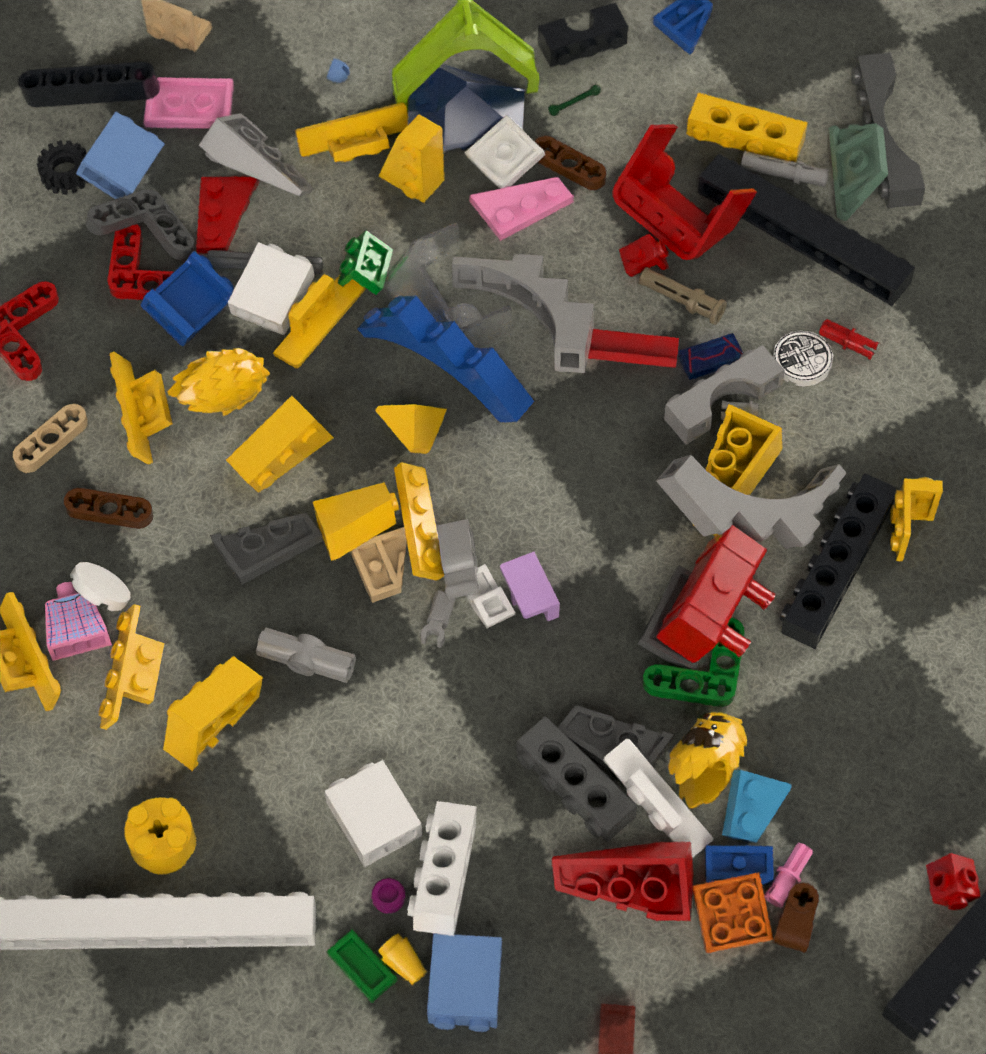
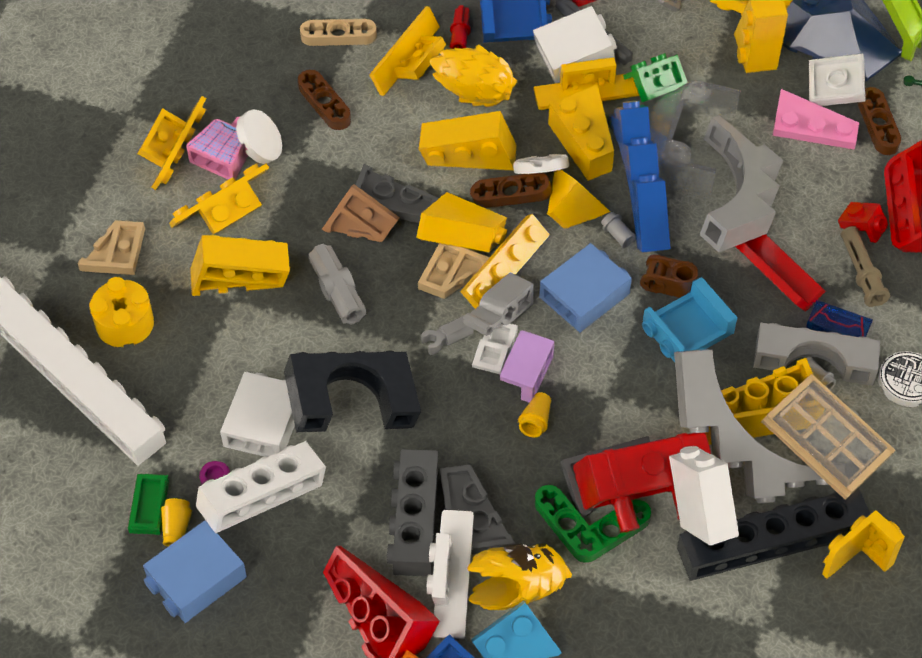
camera: 45 degrees right, 5 degrees down
(86, 789) = (116, 250): none -> tan wing
(154, 350) = (460, 28): none -> red axle
(263, 582) = (361, 217): none -> medium nougat wing
(358, 469) = (502, 183): none -> reddish brown beam
(361, 357) = (584, 131): none -> yellow wedge
(364, 413) = (540, 164): none -> white tile
(431, 694) = (383, 373): none -> black arch
(473, 419) = (613, 224): none -> light grey pin
(502, 488) = (585, 287): none -> medium blue brick
(552, 425) = (671, 276): none -> reddish brown piece
(578, 624) = (535, 415): none -> yellow cone
(608, 448) = (691, 321): none -> dark azure panel
(784, 573) = (704, 495): none -> white brick
(810, 451) = (828, 436): none -> clear piece

